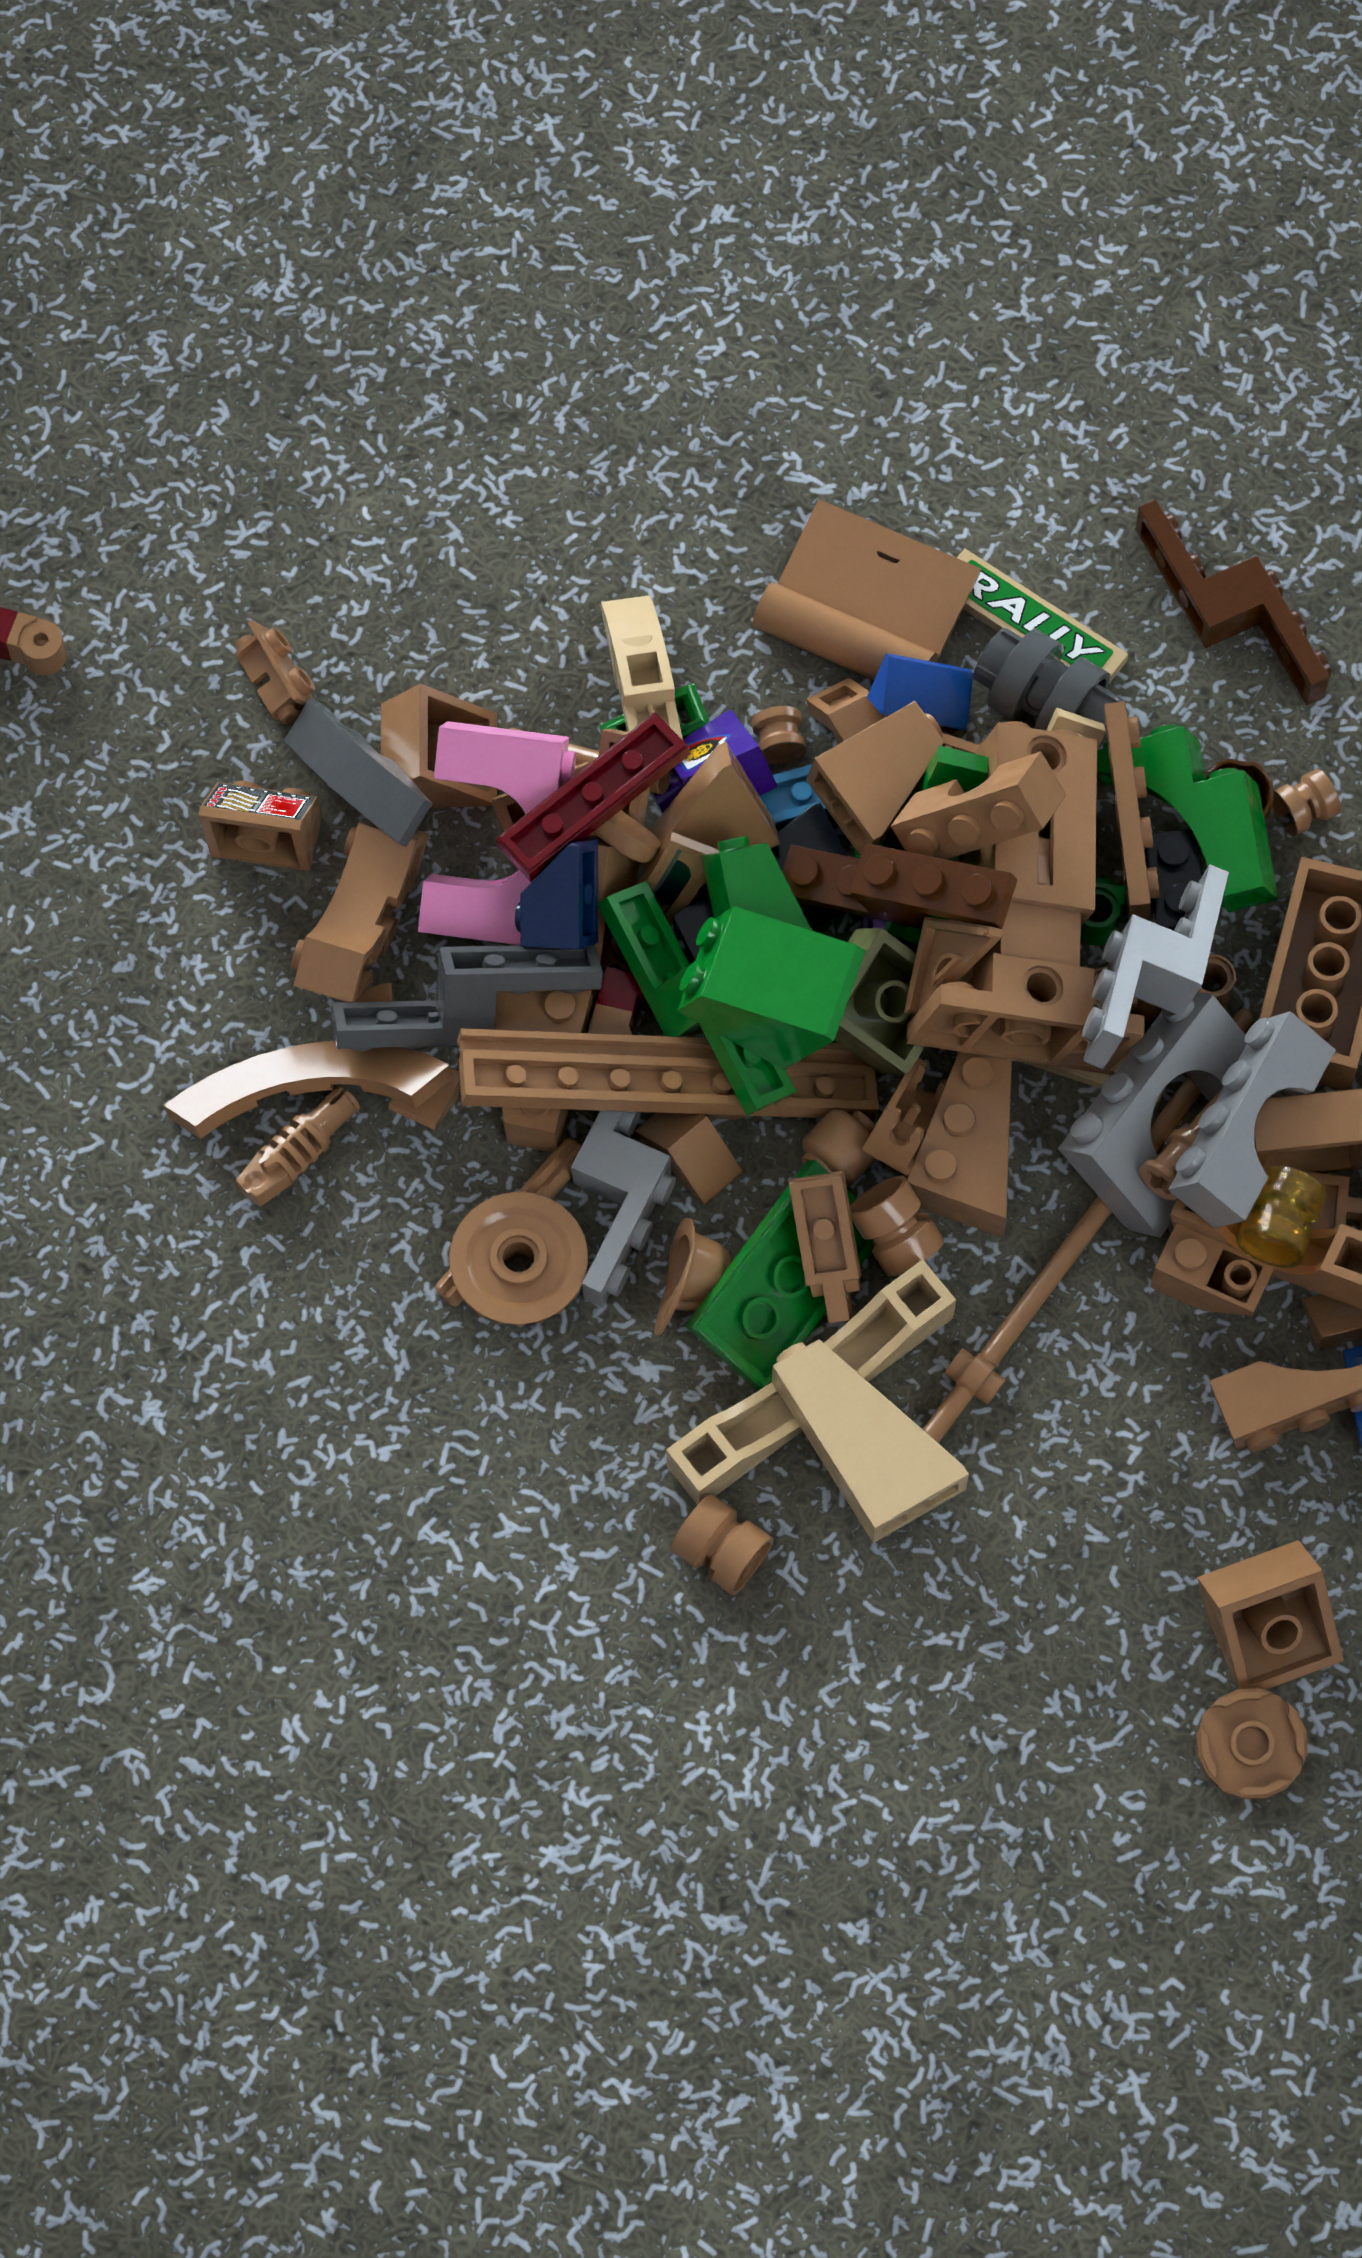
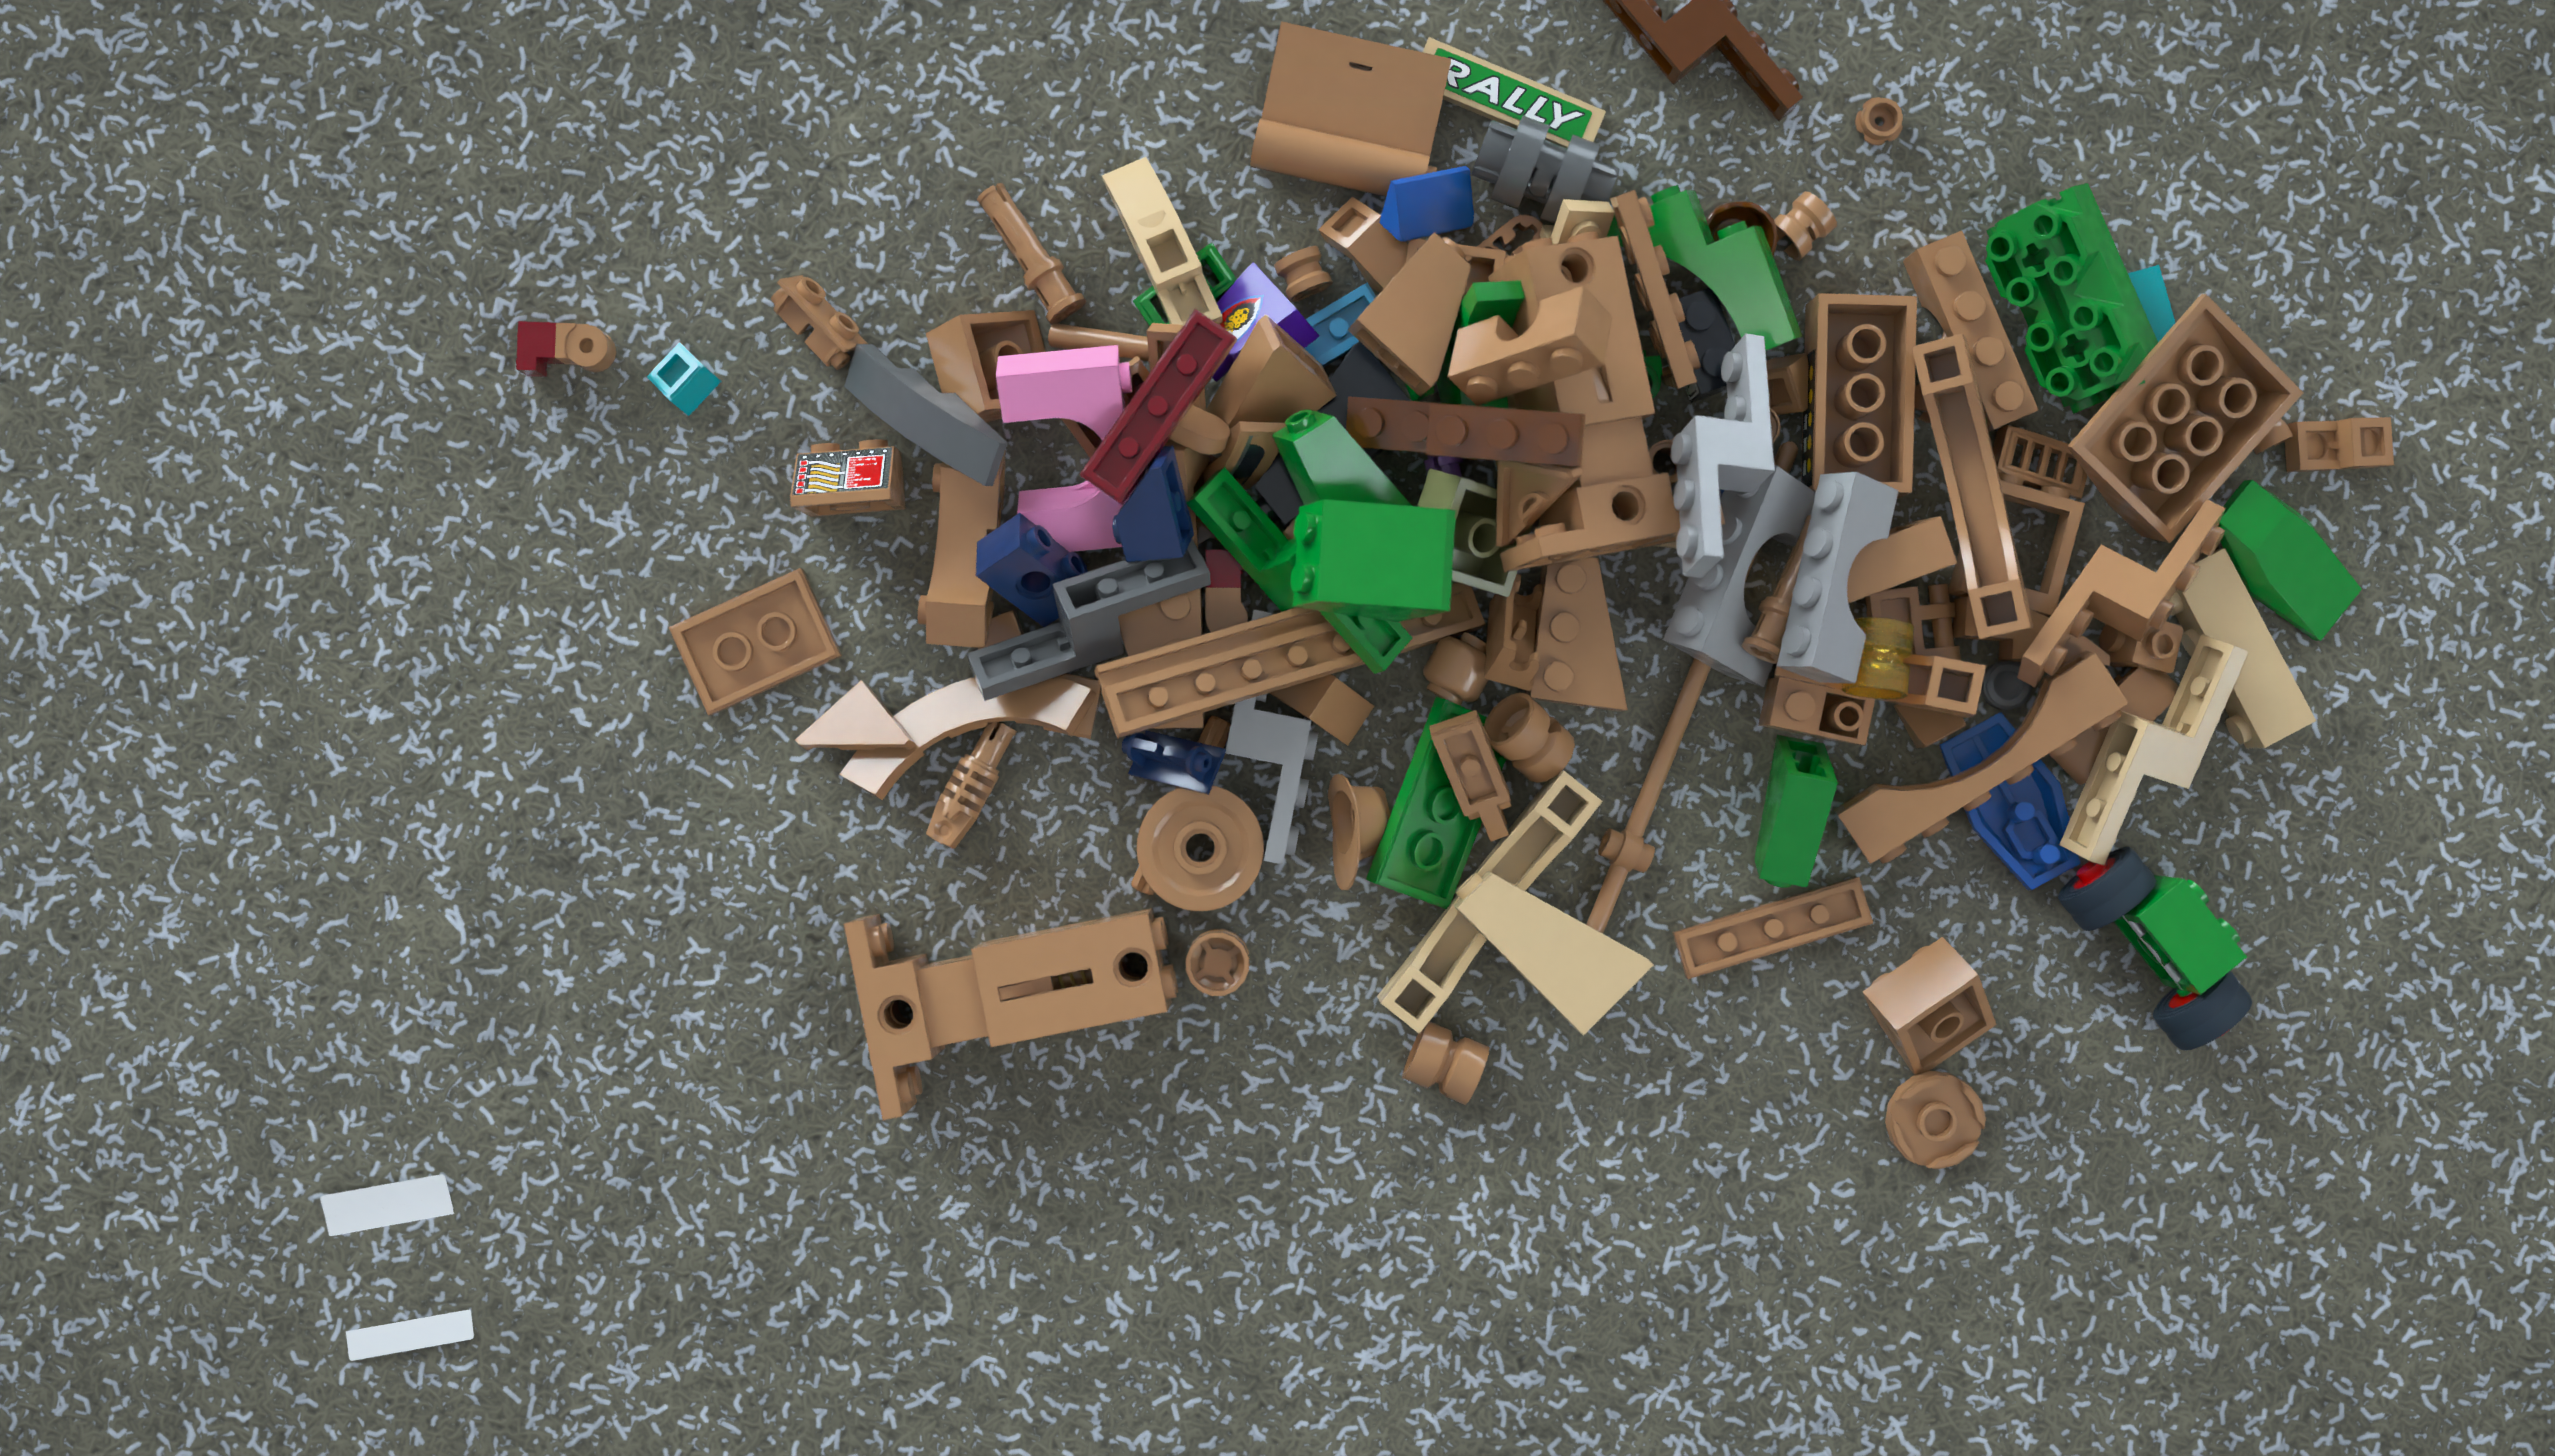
camera: 15 degrees left, 20 degrees up
(117, 961) = (755, 641): none -> medium nougat tile
(125, 699) = (683, 379): none -> teal slope
(194, 1061) = (856, 723): none -> tile
(277, 1348) = (1004, 990): none -> medium nougat brick
(402, 916) = (1024, 564): none -> dark blue brick
(505, 1379) = (1218, 962): none -> medium nougat wheel
(513, 1166) = (1173, 760): none -> dark blue hinge
(514, 675) = (1041, 271): none -> medium nougat pin
(1116, 1496) = (1772, 927): none -> medium nougat tile
(1161, 1376) = (1794, 811): none -> green slope
(1251, 947) = (1788, 383): none -> medium nougat slope

